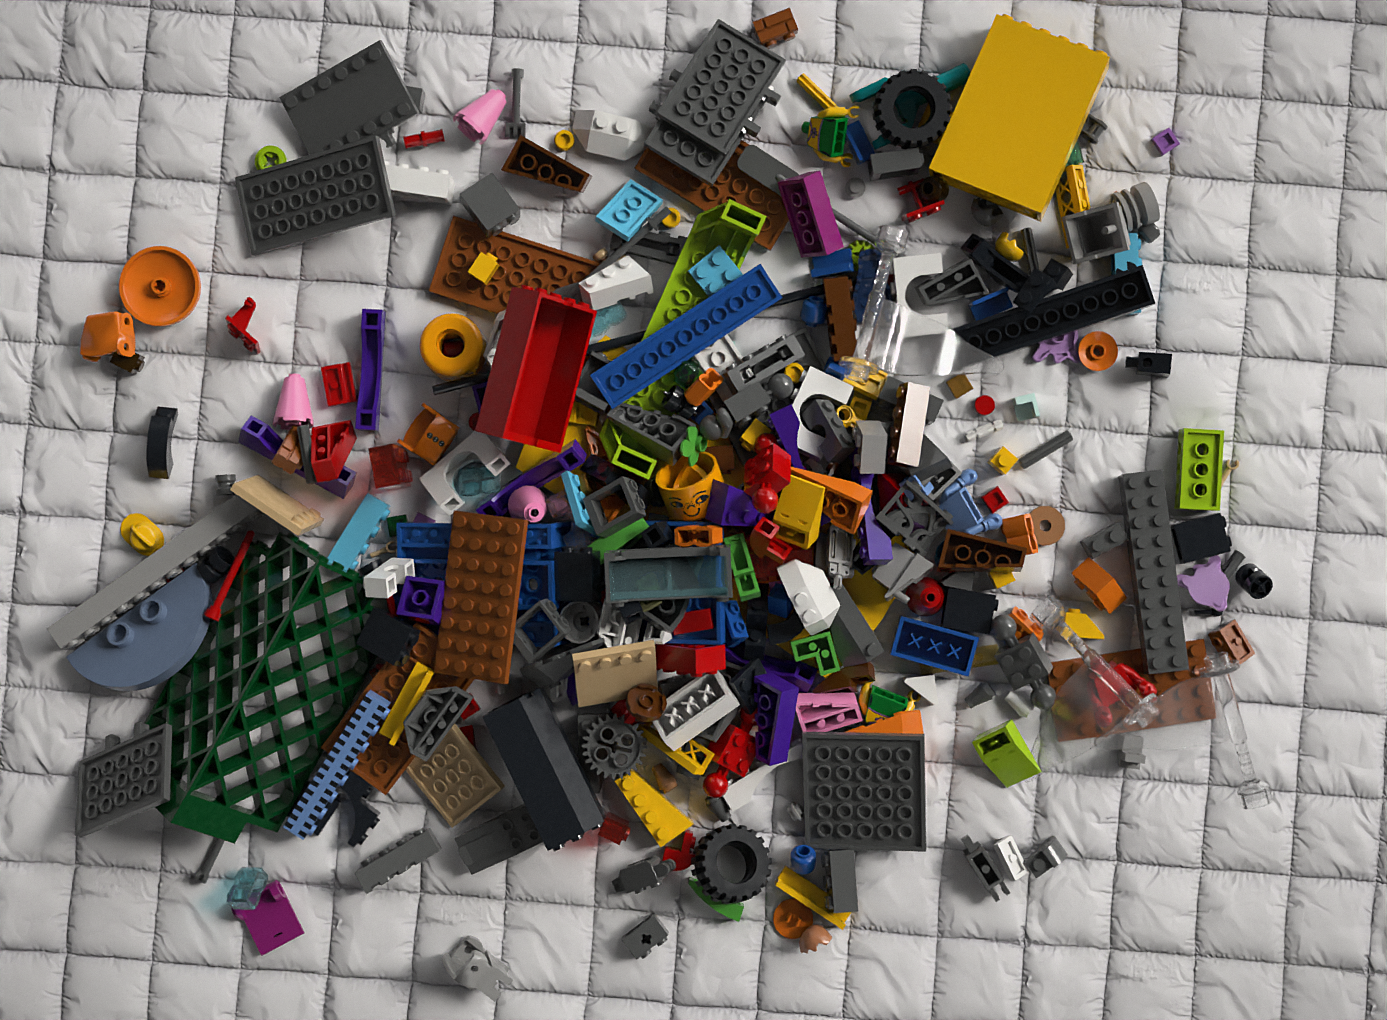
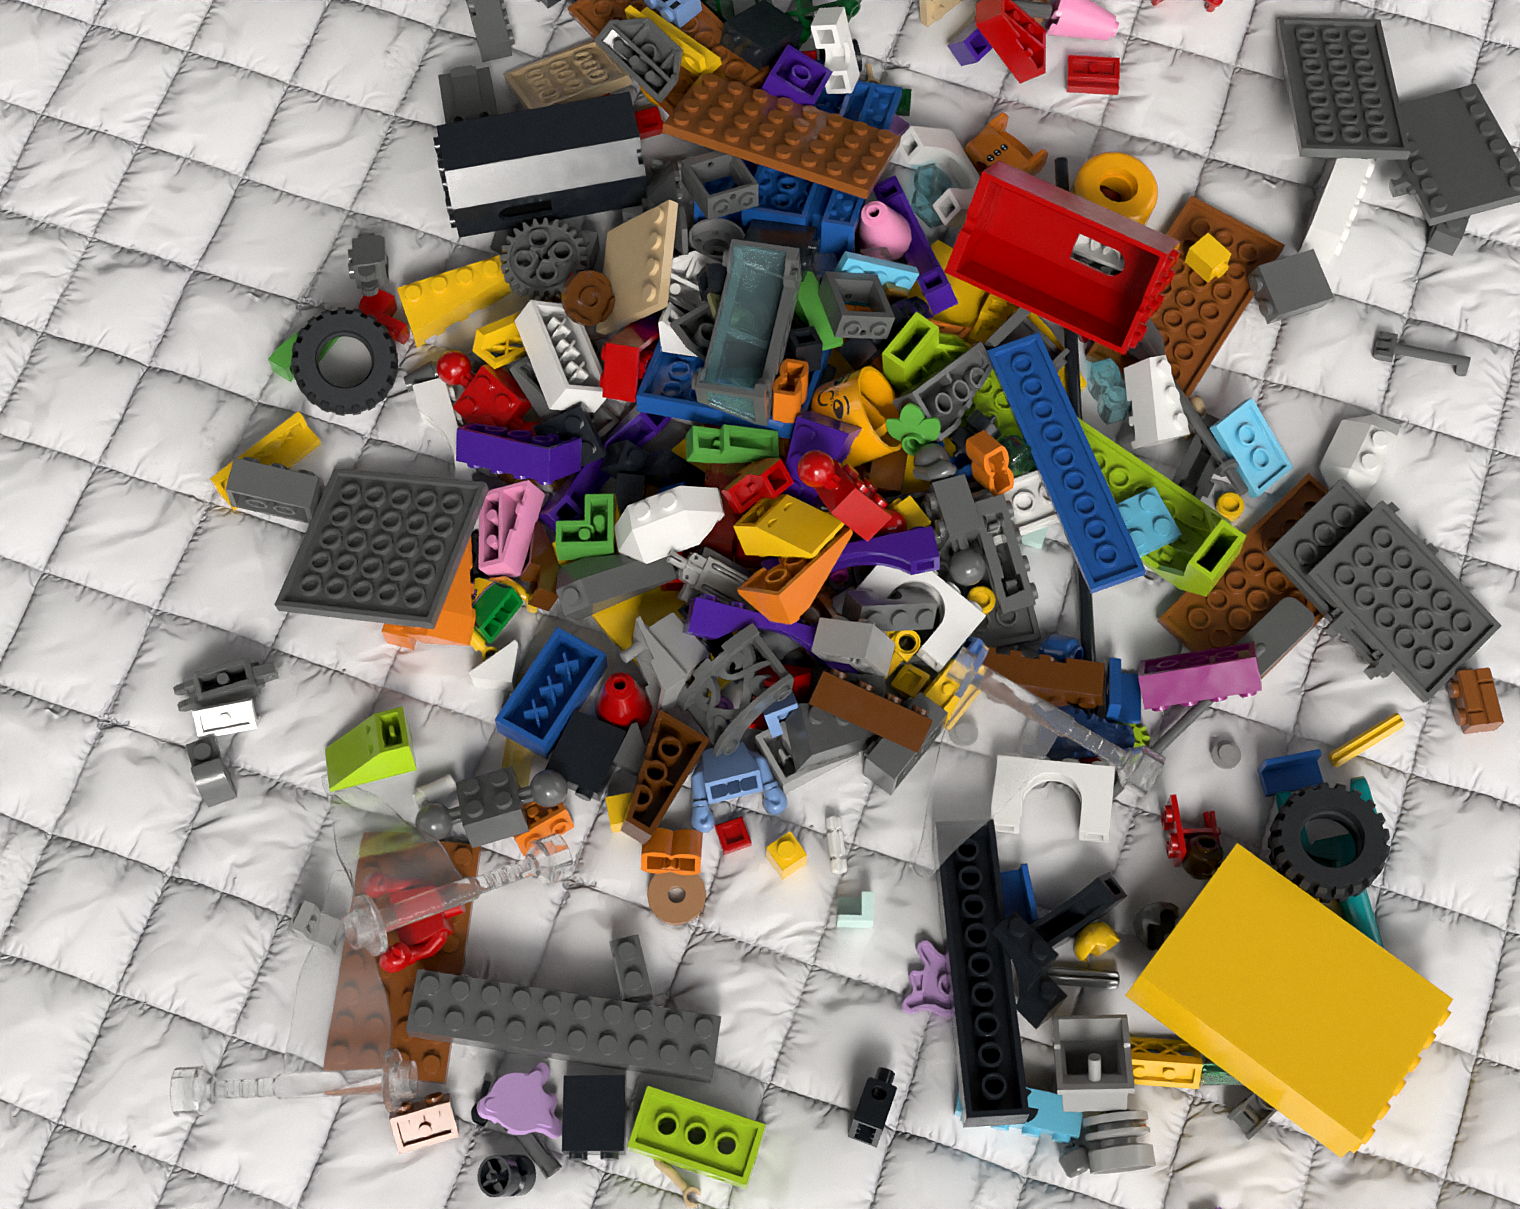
camera: 110 degrees right, 20 degrees down
(272, 152) = (1404, 60): lime gear -> none
(359, 532) = (900, 53): medium azure brick -> none
(371, 370) = (1149, 121): dark purple arch -> none
(390, 467) = (974, 84): clear red brick -> none
(424, 138) = (1392, 237): red pin -> none
(481, 115) = (1414, 305): bright pink cone -> none
(483, 975) = (321, 36): light grey piece -> none
(539, 164) = (1331, 363): reddish brown wedge -> none
(564, 140) = (1361, 401): yellow tile -> none
(614, 828) = (440, 243): clear red brick -> none
(651, 926) = (291, 253): dark grey brick -> none
(664, 778) = (478, 319): medium nougat cone -> none
(695, 621) = (677, 374): red tile -> none
(734, 625) = (660, 433): blue bracket -> none
(792, 918) = (244, 431): orange piece -> none
(795, 811) = (387, 464): light grey plate -> none
(803, 859) = (320, 457): blue head -> none
(812, 937) = (215, 447): nougat hair -> none
(828, 134) = (1310, 728): torso -> none
(895, 164) = (1251, 807): dark grey window -> none
(953, 284) = (1058, 848): dark grey wedge -> none
(959, 385) = (908, 827): pearl gold tile -> none
(980, 694) = (465, 746): dark grey cone -> none
(984, 405) = (872, 855): red tile -> none
(1045, 449) = (786, 924): dark grey axle -> none
(1082, 624) = (518, 905): yellow slope -> none
(1099, 585) = (566, 942): orange brick -> none
(1105, 344) = (917, 1020): orange dish -> none

